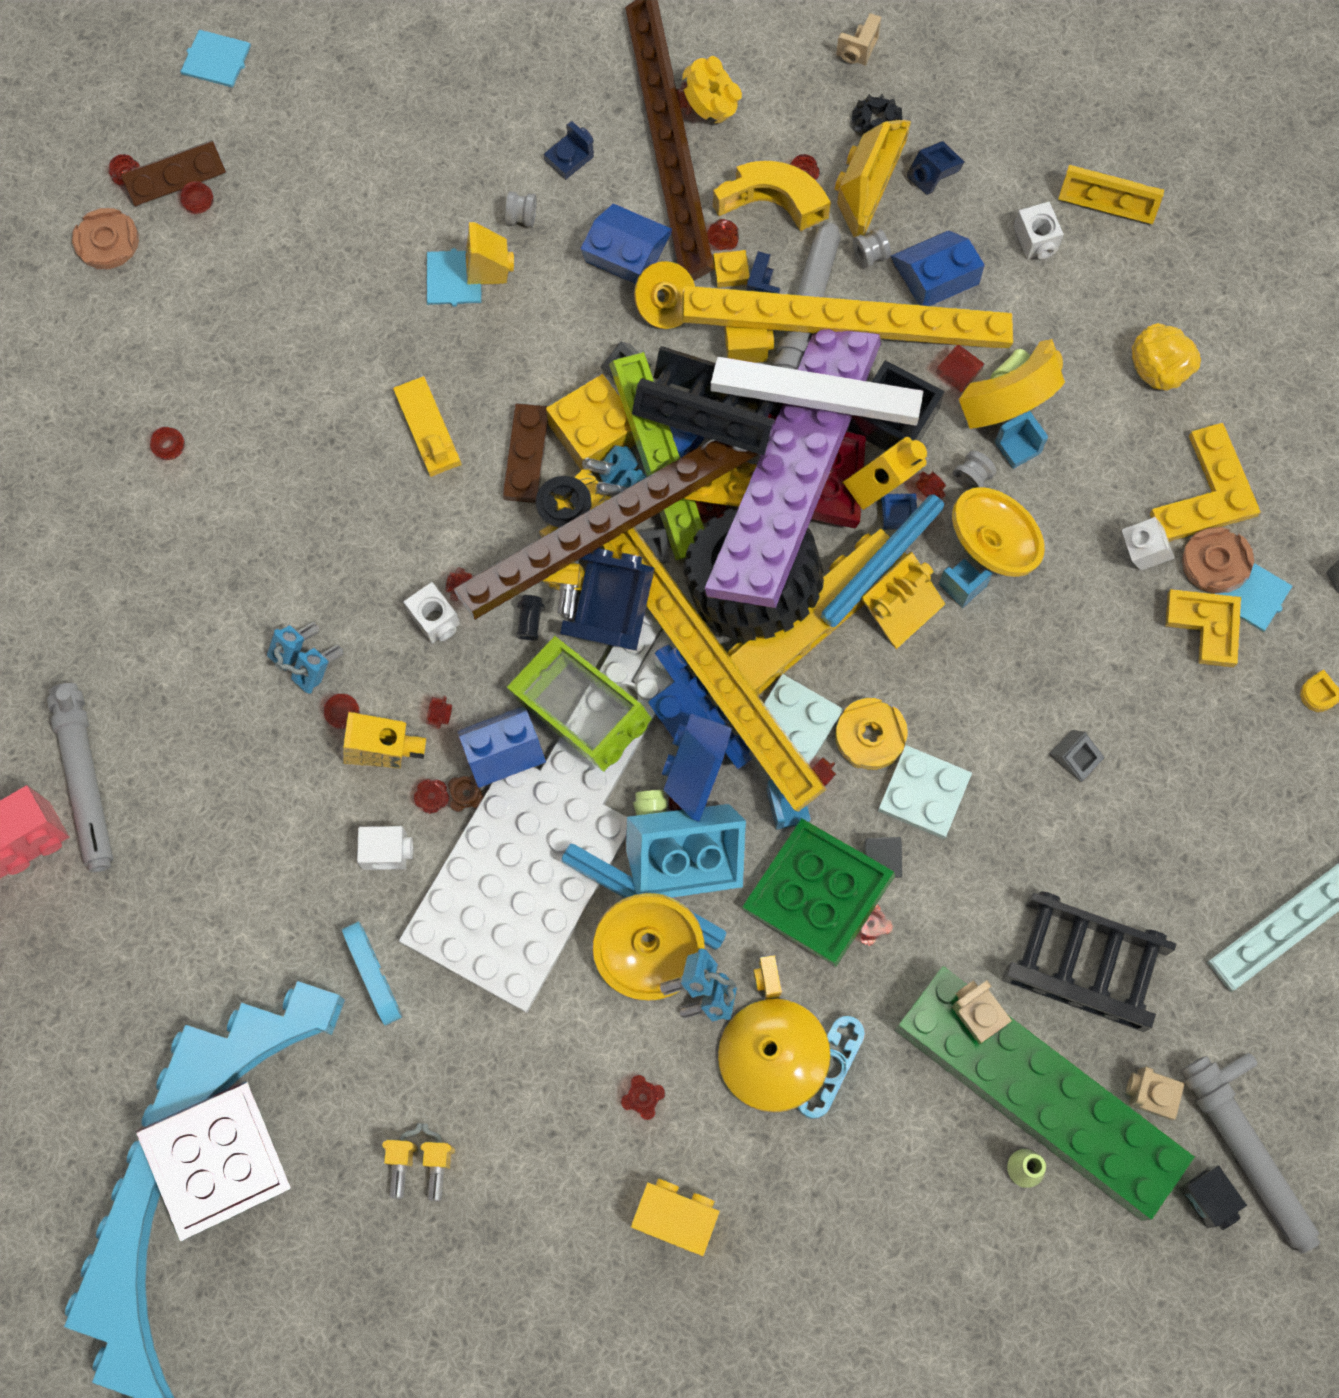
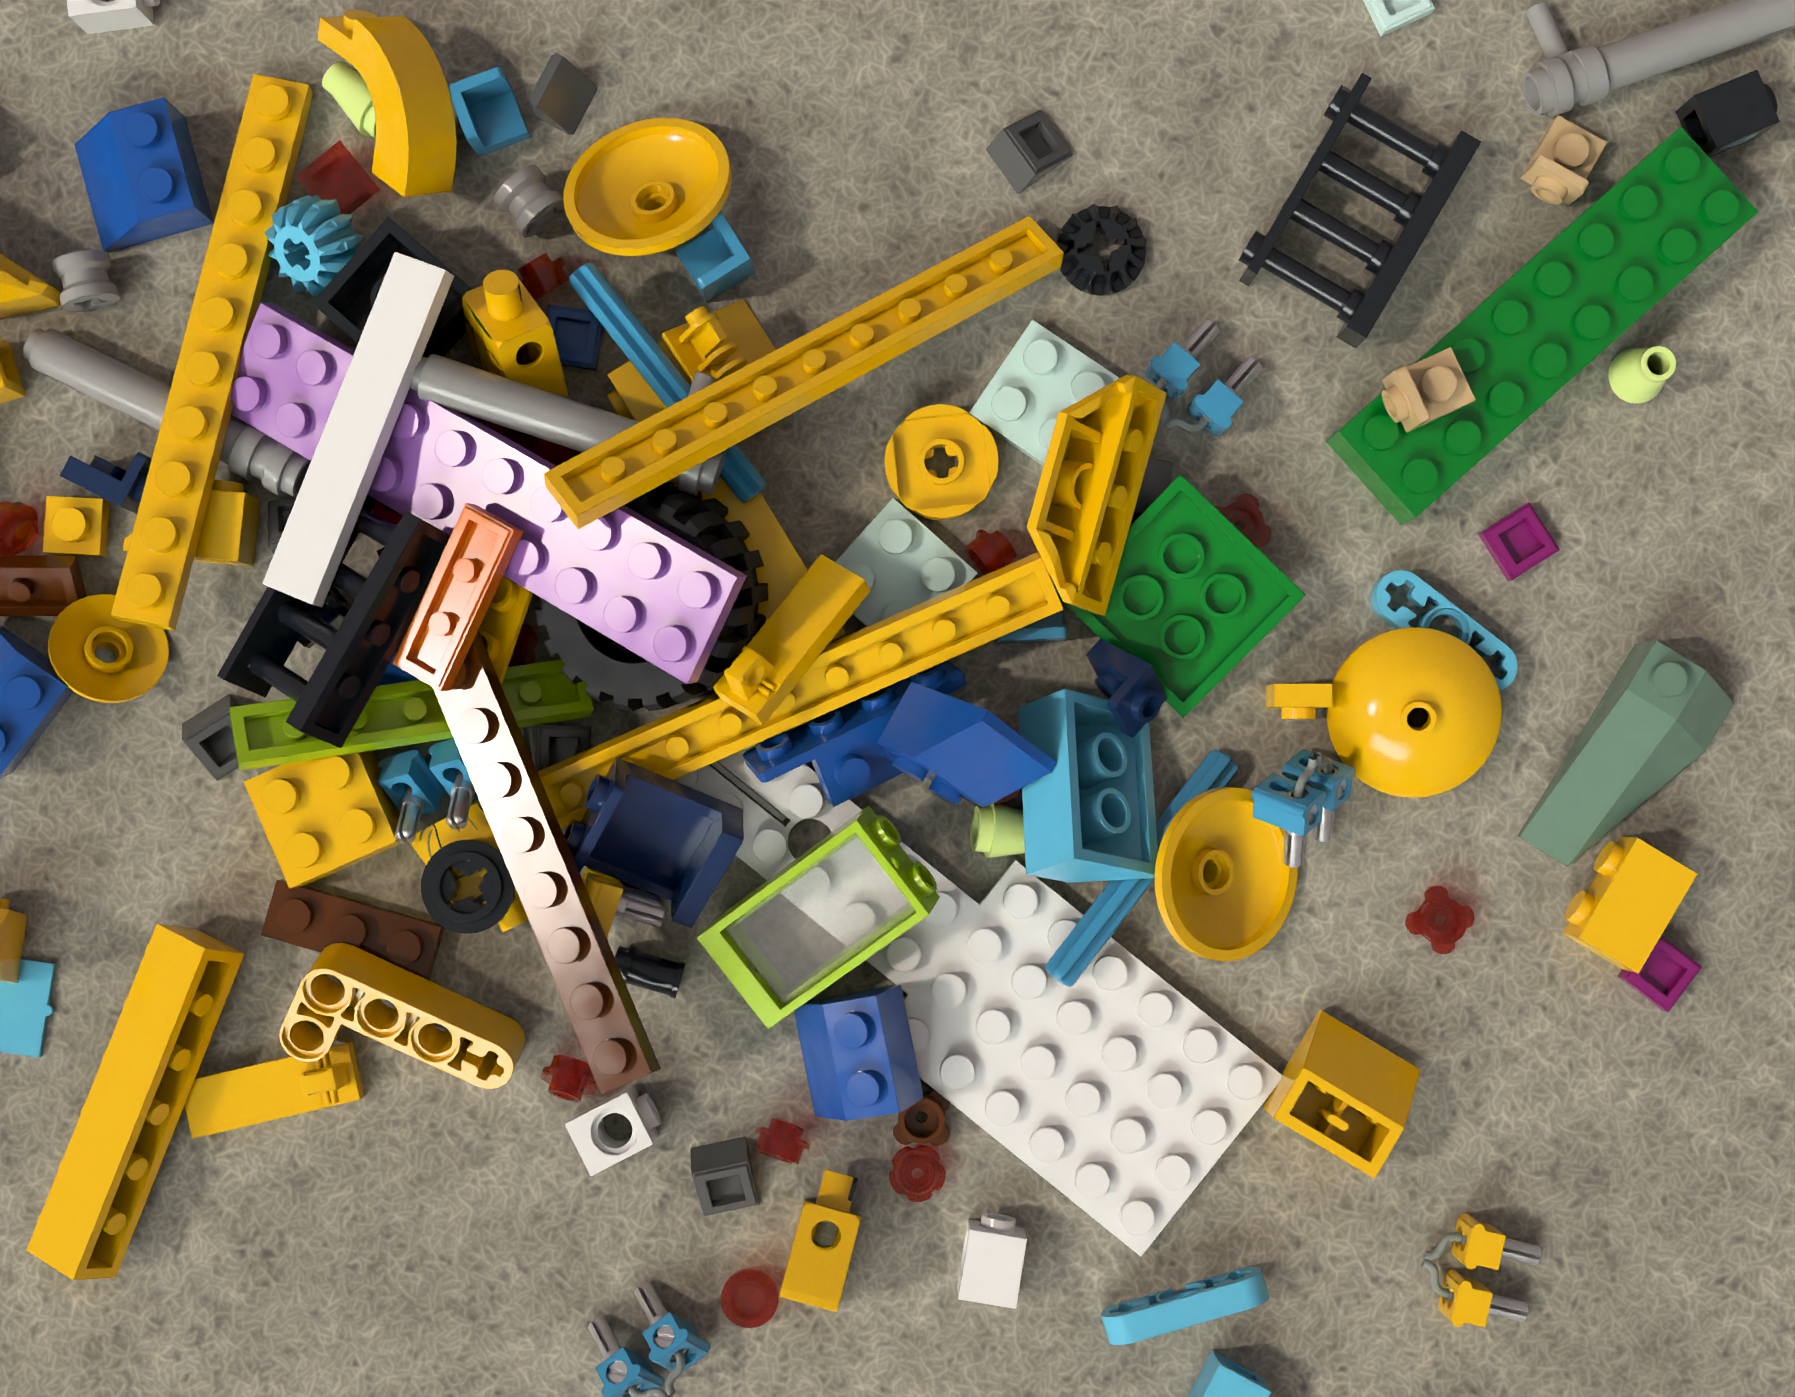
camera: 80 degrees left, 15 degrees up
(410, 353) = (134, 1103): none -> yellow brick
(412, 684) = (724, 1176): none -> dark grey slope
(481, 495) = (409, 1027): none -> yellow beam
(521, 1048) = (1345, 1094): none -> yellow slope
(634, 1253) = (1663, 975): none -> magenta tile
(731, 459) = (457, 597): none -> tile
(744, 654) = (791, 639): none -> yellow hinge
(753, 866) = (1129, 684): none -> dark blue bracket
(784, 1210) = (1637, 740): none -> sand green wedge
(839, 554) = (542, 412): none -> light grey cylinder
(873, 814) = (1093, 488): none -> yellow wedge
(899, 1108) = (1518, 541): none -> magenta tile
(910, 634) = (800, 372): none -> yellow plate
(922, 356) = (312, 242): none -> medium azure gear
(960, 866) = (1214, 407): none -> dark azure piece
(1020, 823) = (1085, 270): none -> black gear
(1042, 478) = (562, 95): none -> dark grey slope

